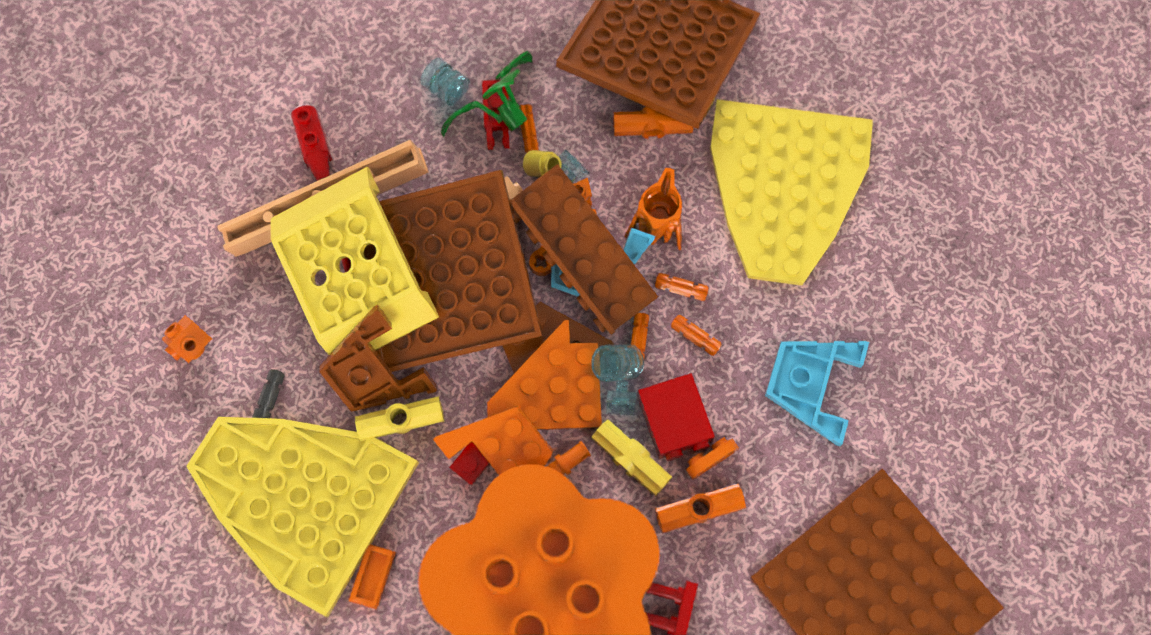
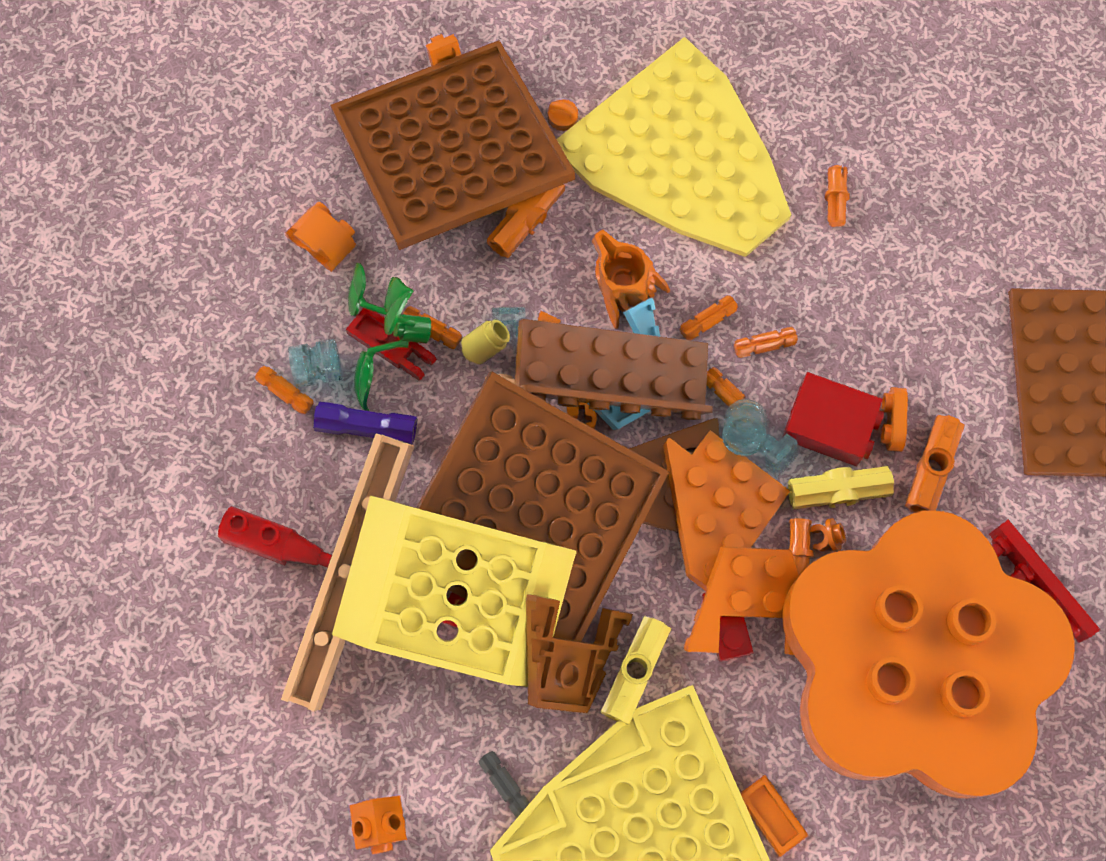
camera: 55 degrees left, 0 degrees up
(416, 64) = (284, 389): none -> orange axle
(440, 155) = (340, 420): none -> dark purple axle
(532, 22) = (322, 236): none -> orange cylinder
(593, 476) = (833, 535): none -> orange plate
(745, 90) = (562, 114): none -> orange tile
(802, 377) = (881, 289): medium azure wing -> none
(845, 302) = (837, 195): none -> orange axle

